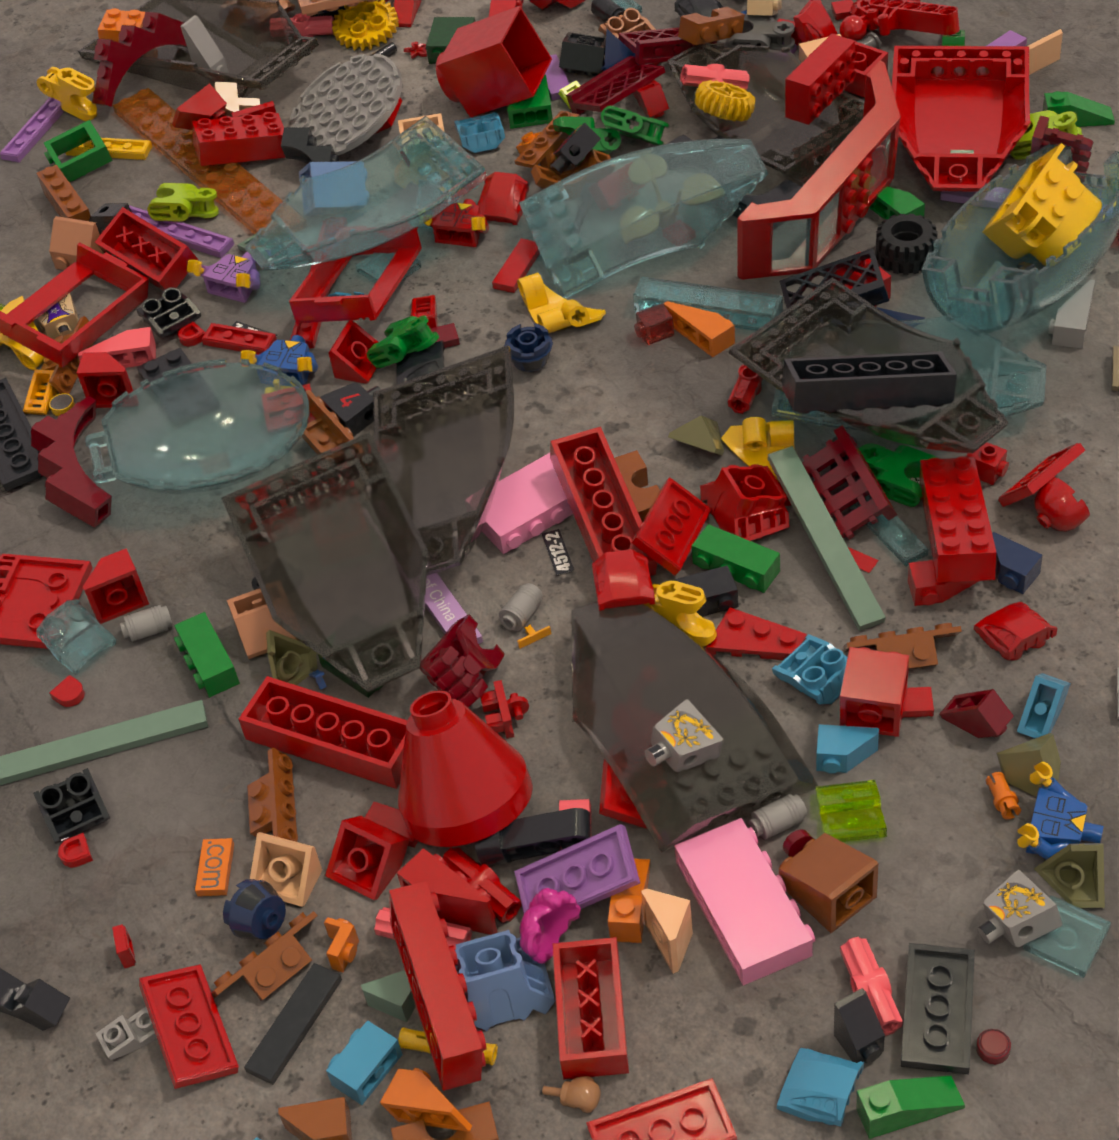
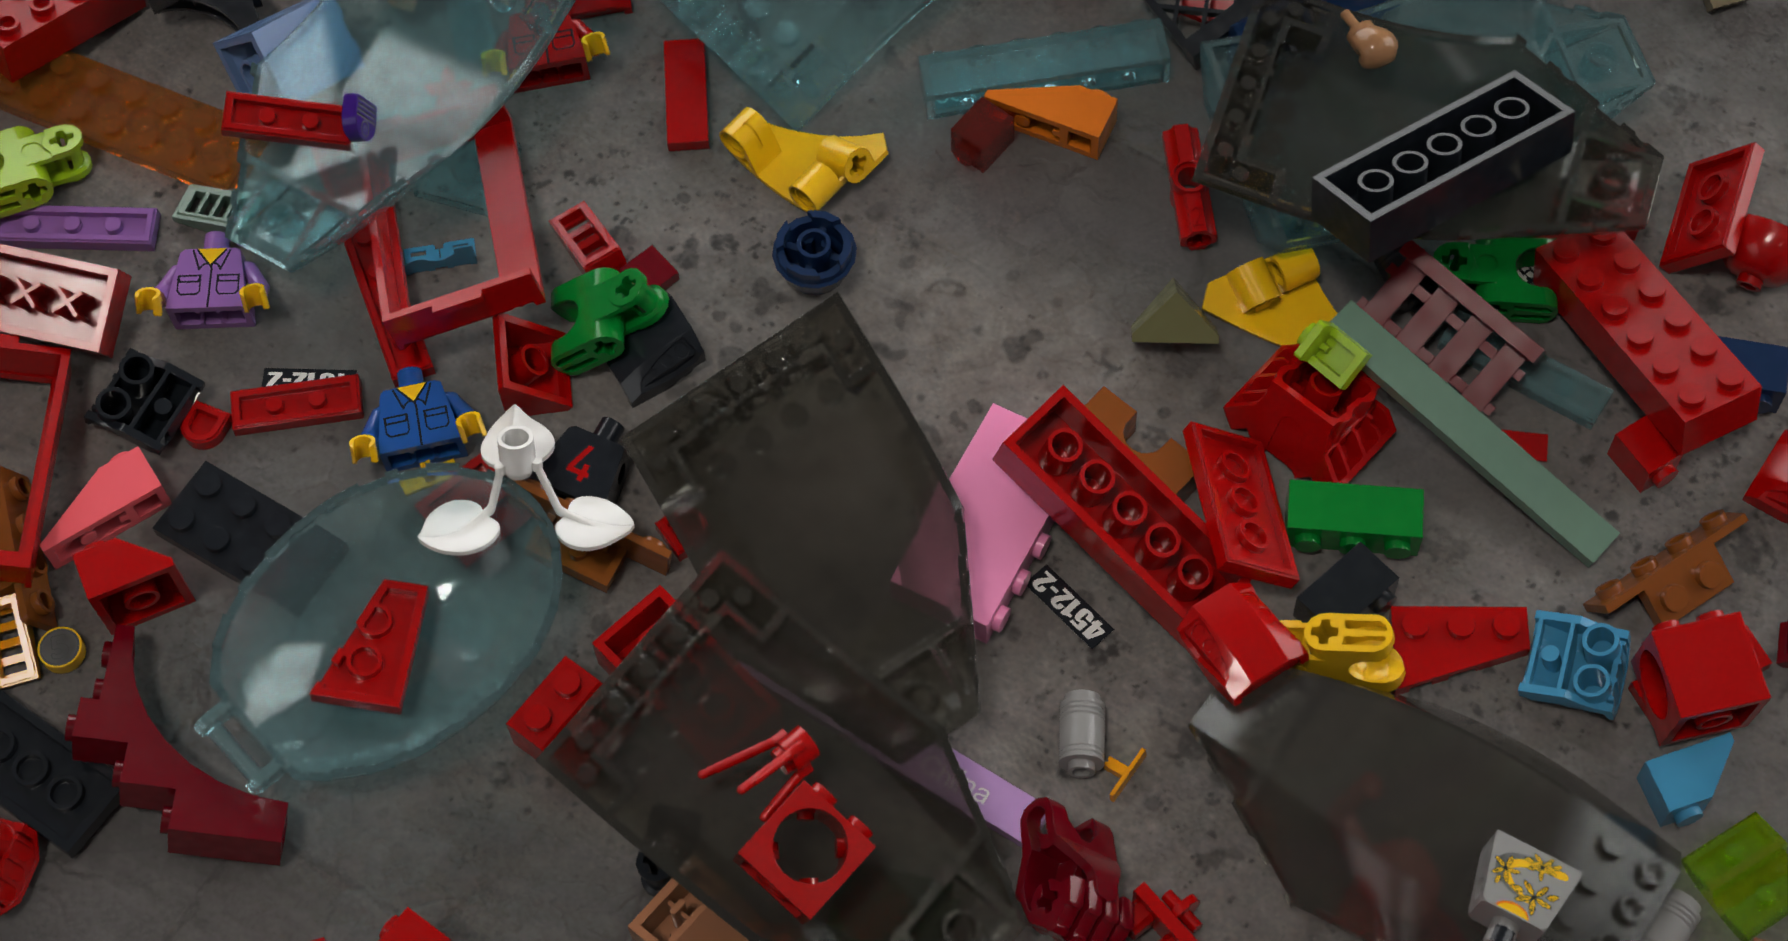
camera: 30 degrees left, 15 degrees up
(197, 449) = (379, 654): none -> red wing
(303, 205) = (284, 121): none -> red tile
(308, 374) = (516, 449): none -> white plant
(312, 563) = (806, 895): none -> red brick
(336, 212) = (358, 117): none -> dark purple tile
(346, 538) = (792, 752): none -> red plant
(762, 463) = (1332, 353): none -> lime bracket
(873, 322) = (1372, 43): none -> medium nougat piece

